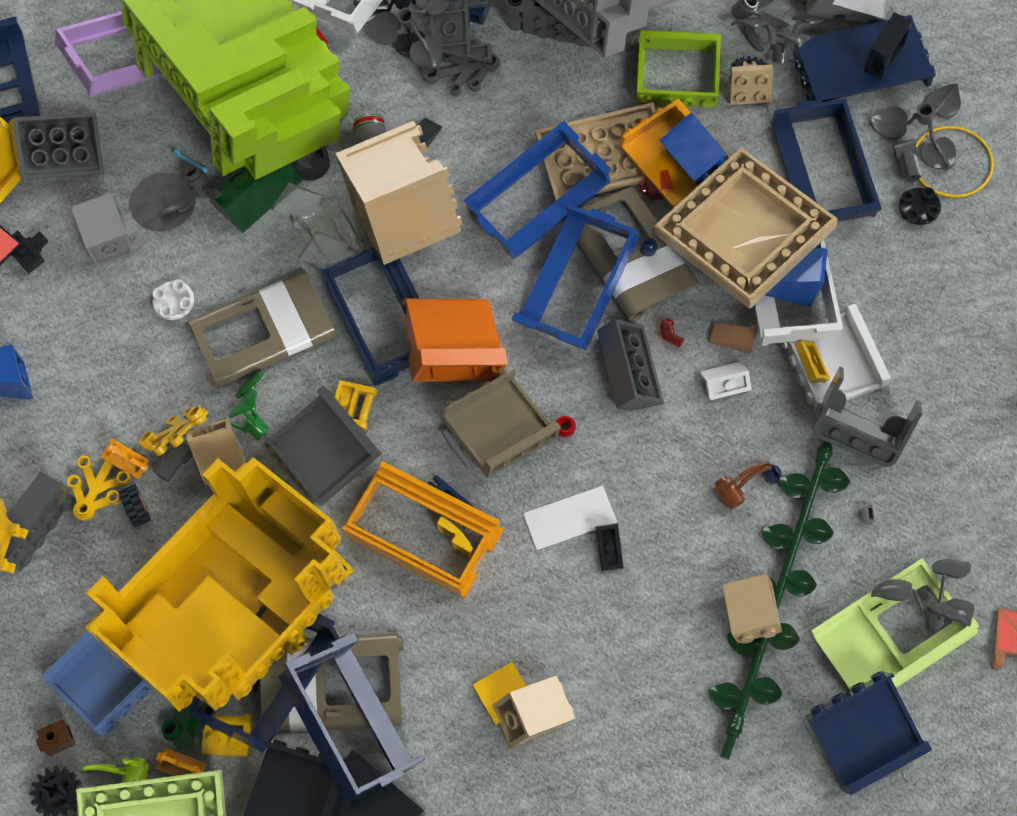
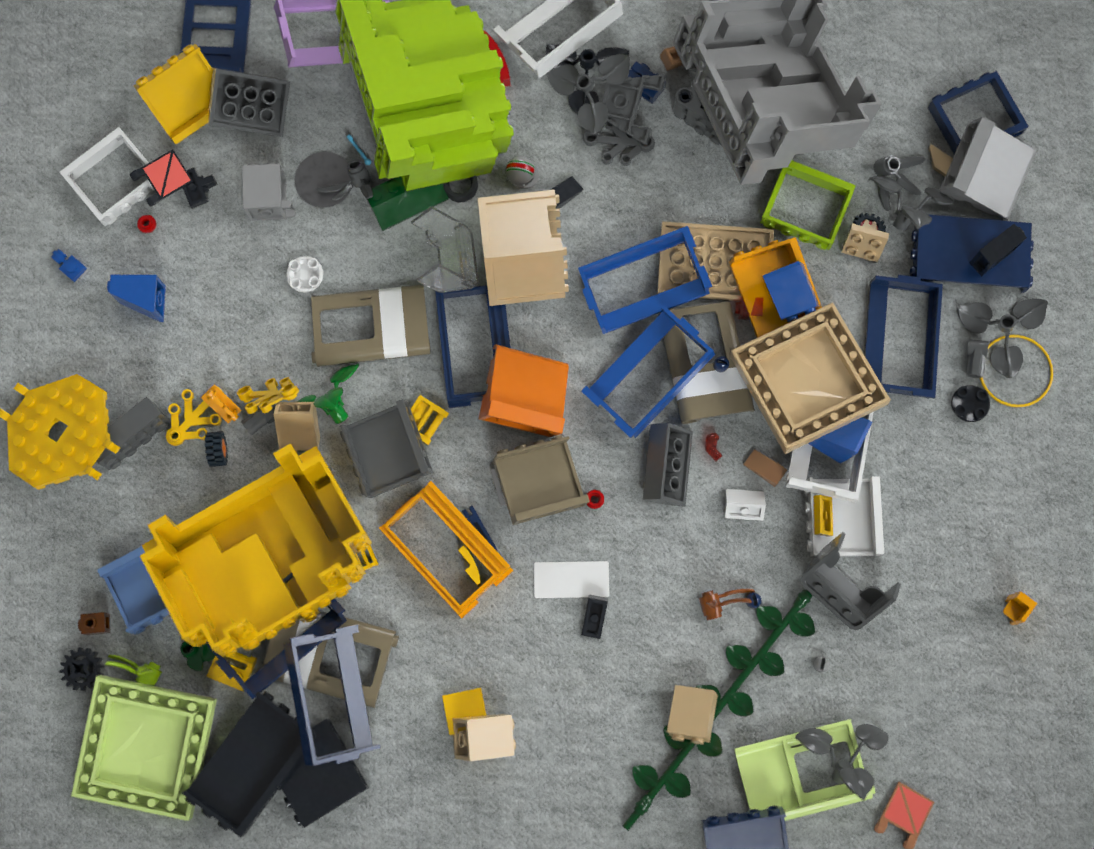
camera: 15 degrees right, 10 degrees up
(177, 764) = (186, 679): light orange hinge -> none

